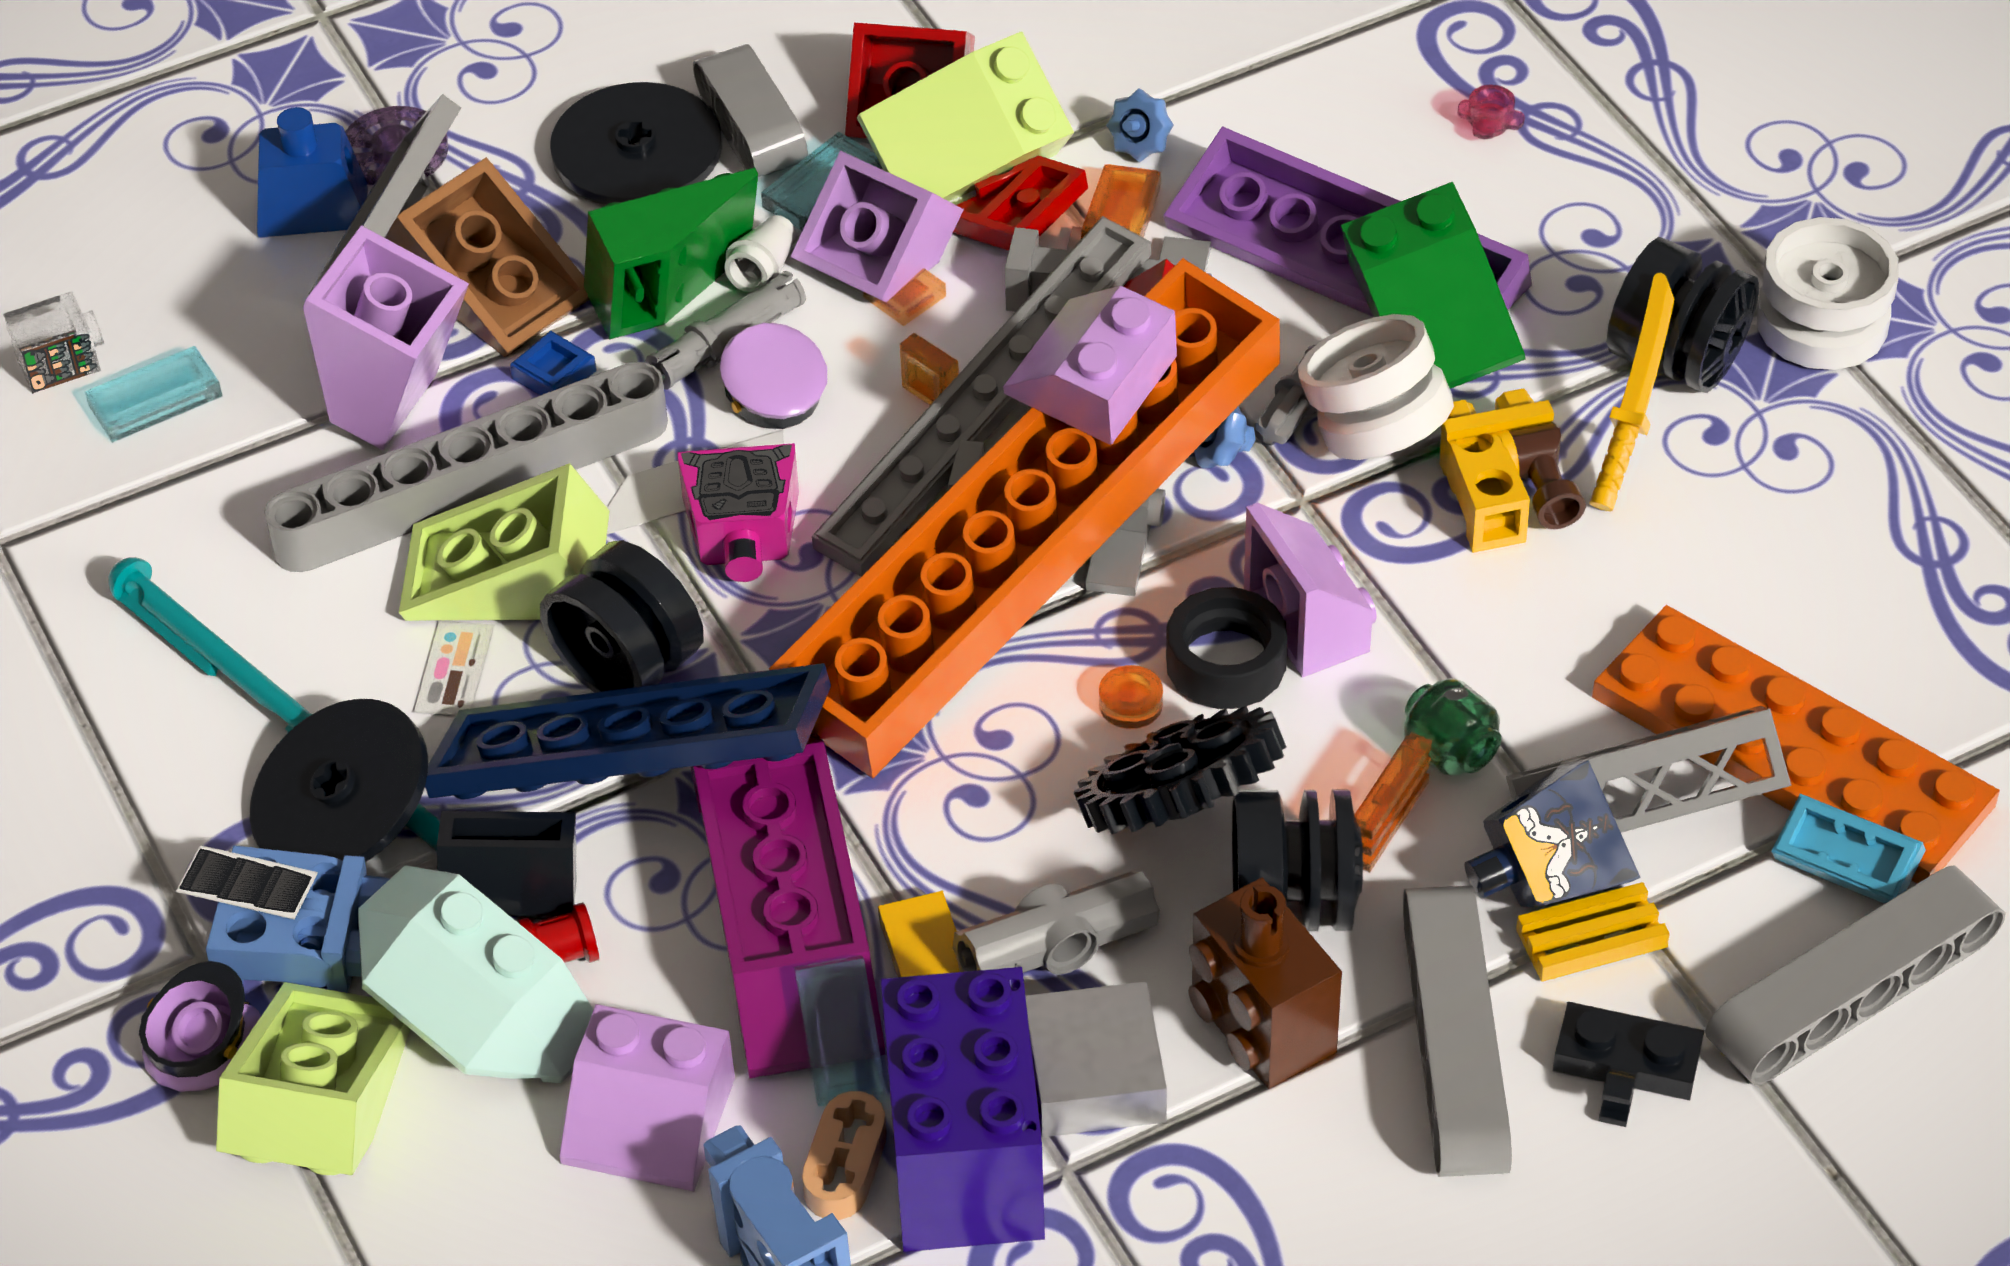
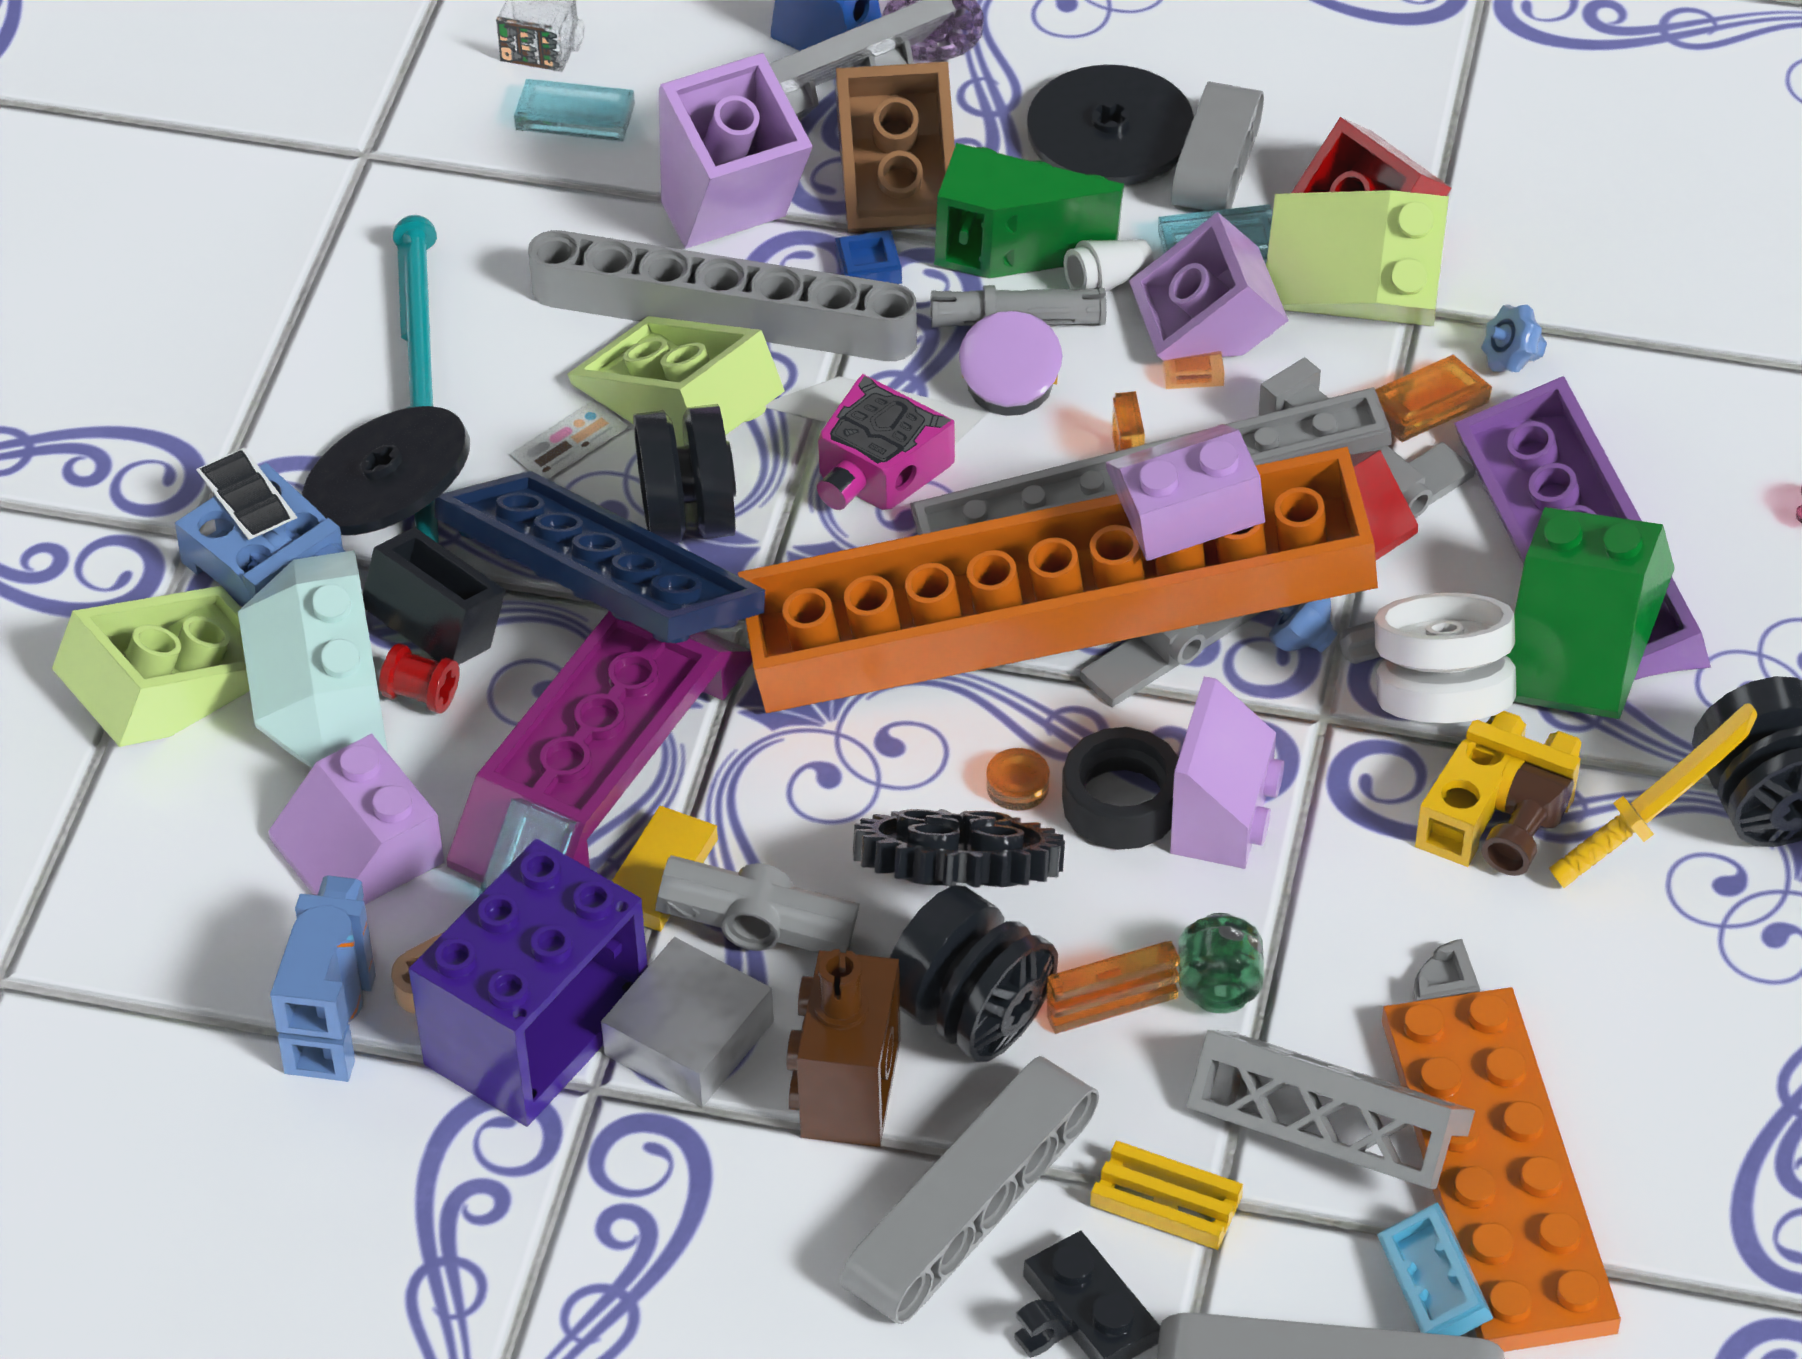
camera: 40 degrees right, 0 degrees up
(196, 1026) = (131, 569): lavender piece -> none
(1024, 197) = (1351, 343): red wing -> none
(1553, 842) = (1187, 1101): torso -> none
(1606, 631) = (1446, 973): none -> light grey tile

